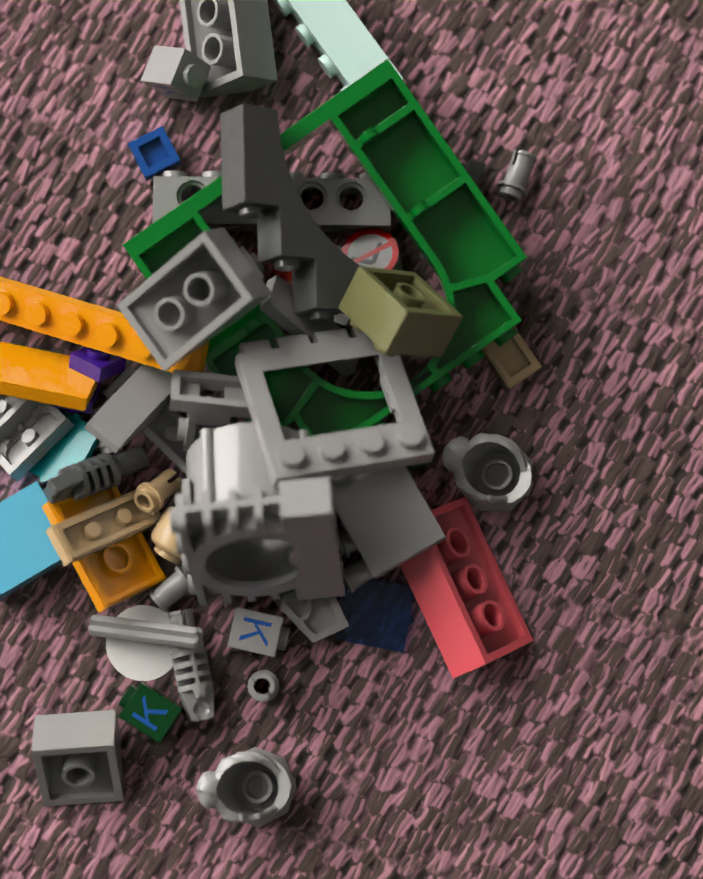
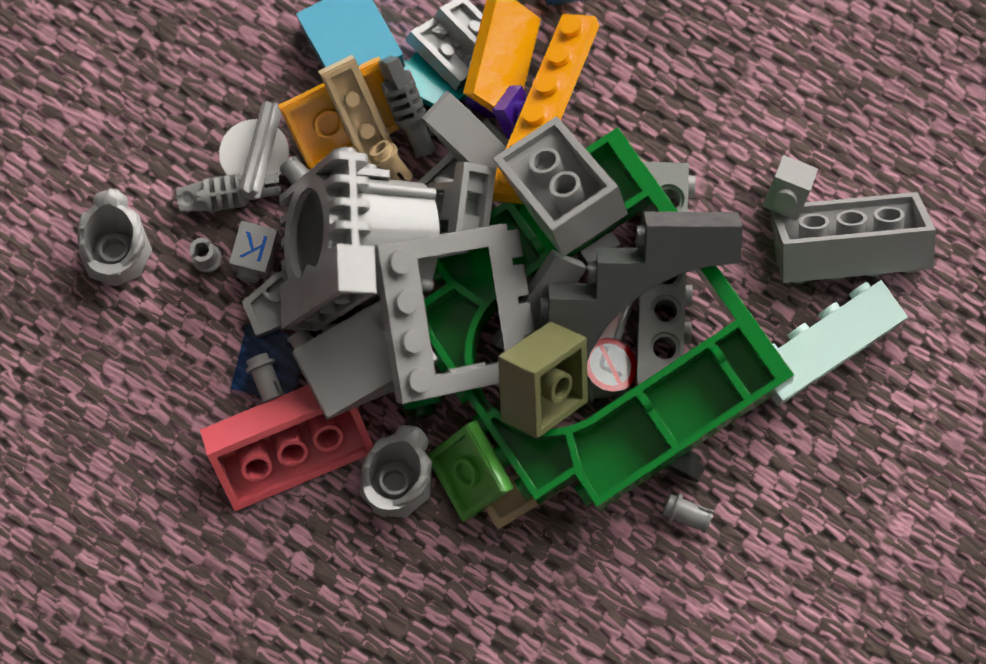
camera: 95 degrees right, 5 degrees down
(78, 757) = (151, 89): light grey slope -> none
(149, 711) = (188, 153): dark green brick -> none
(154, 153) = (714, 168): blue plate -> none
(394, 613) = (264, 377): none -> light grey pin
(487, 393) = (470, 471): none -> bright green tile

